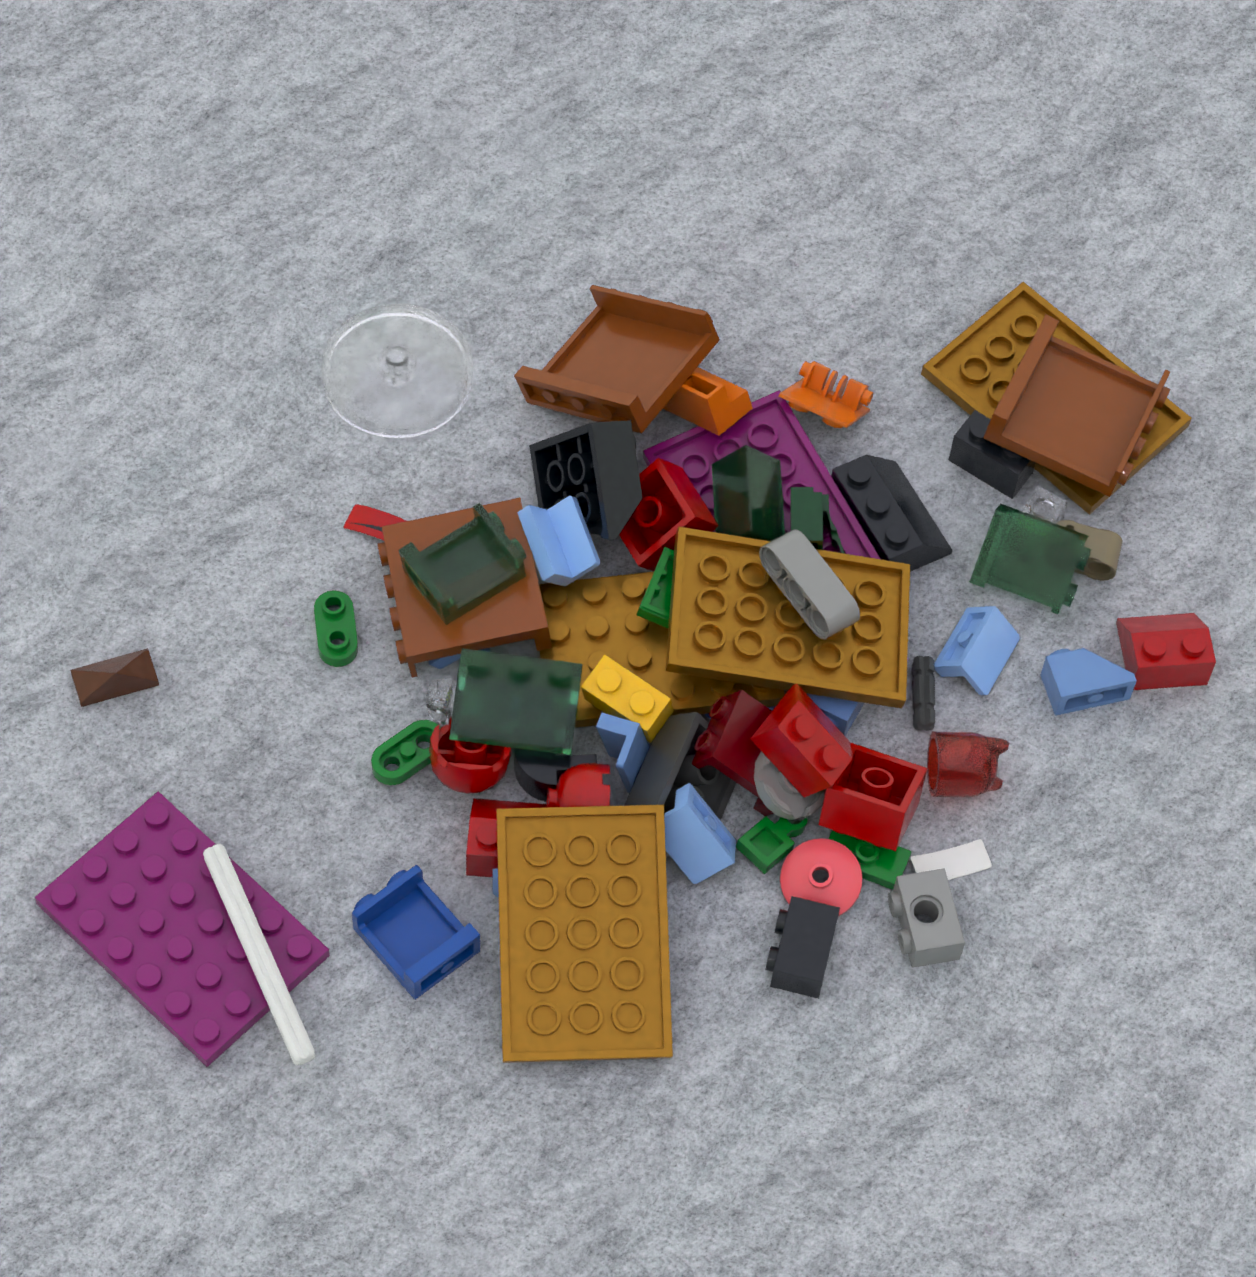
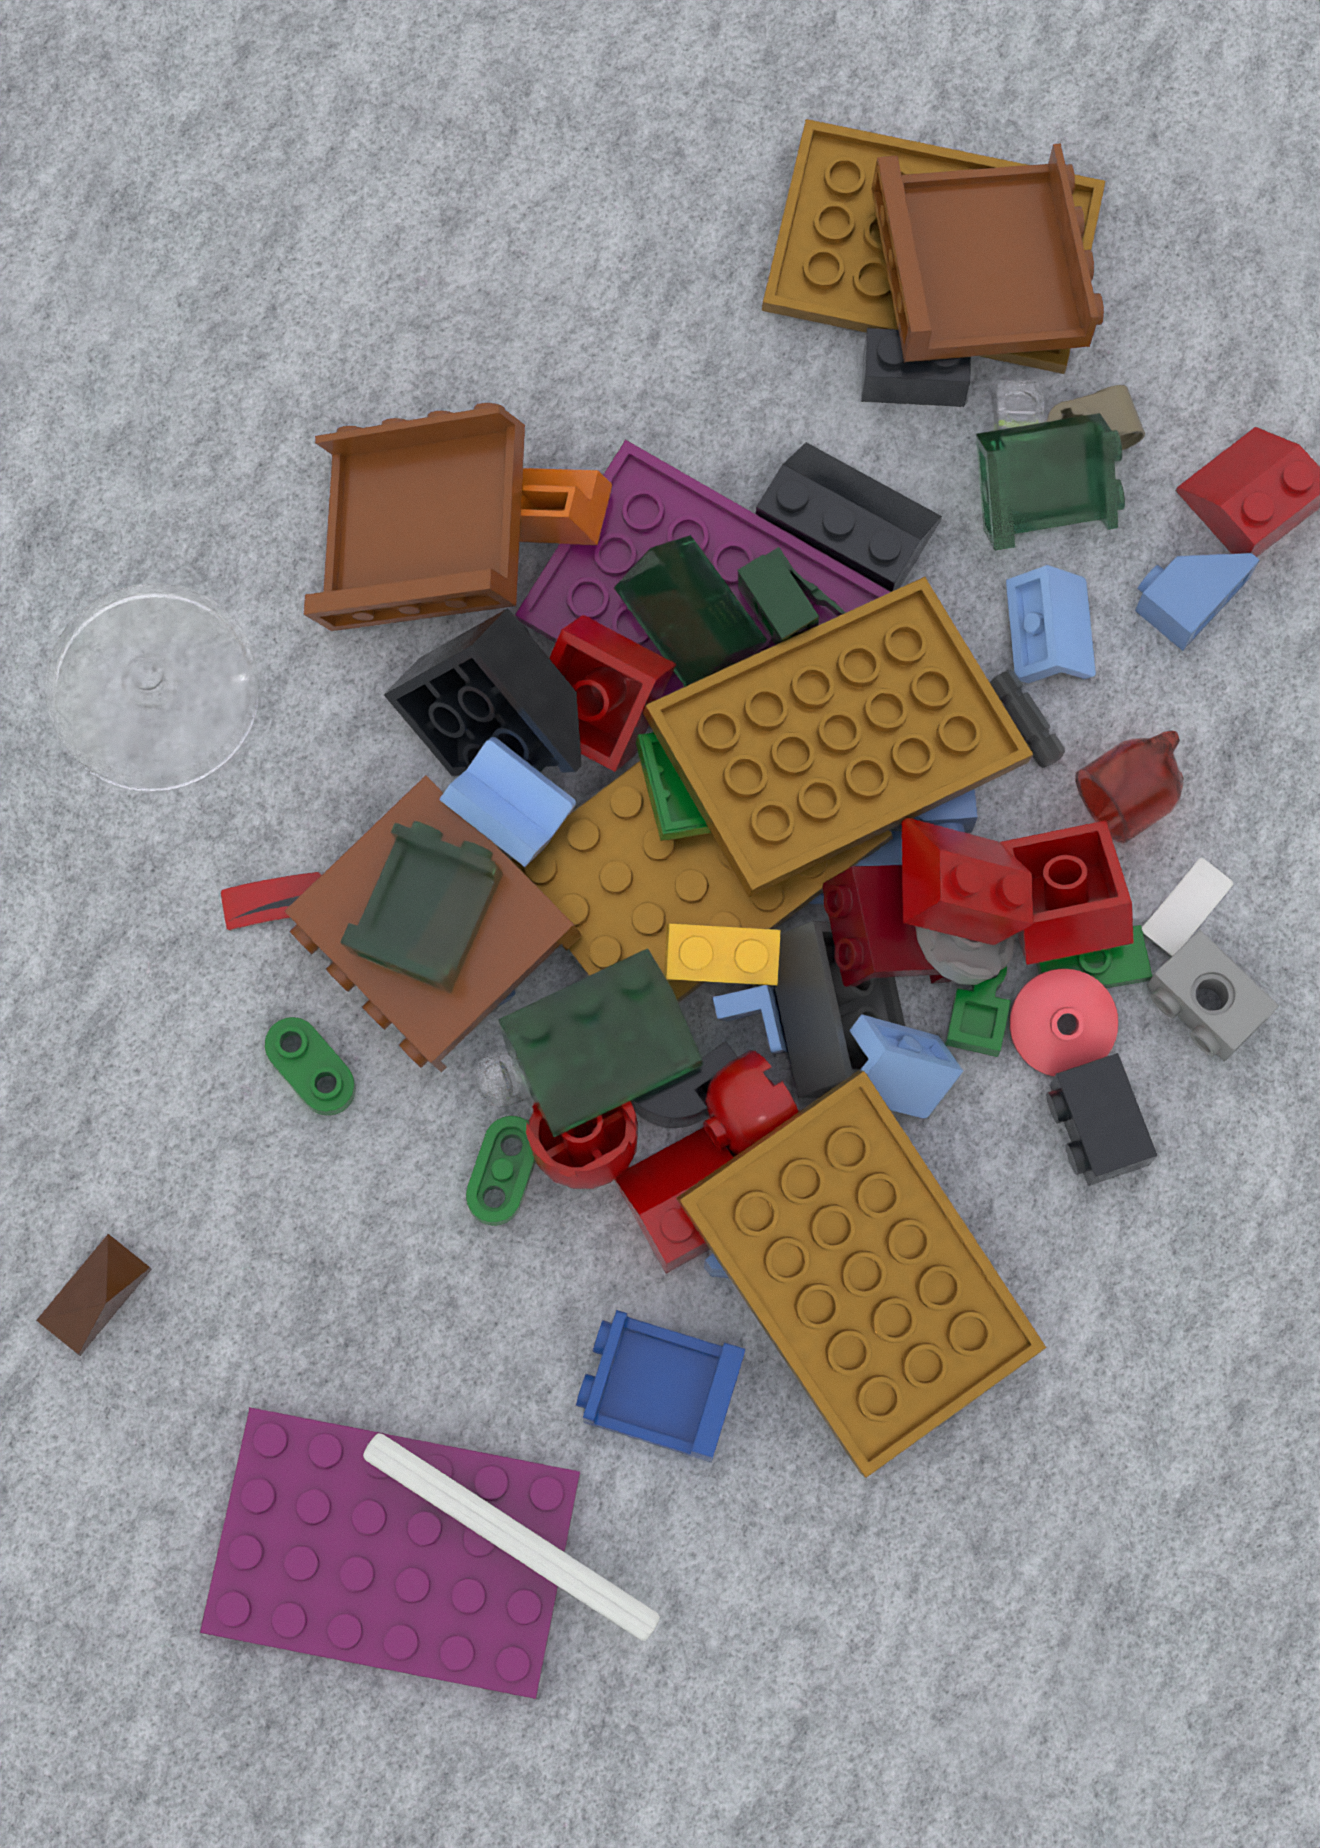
camera: 30 degrees left, 15 degrees up
(809, 584) = (842, 684): light grey beam -> none
(834, 408) = (683, 421): orange hinge -> none

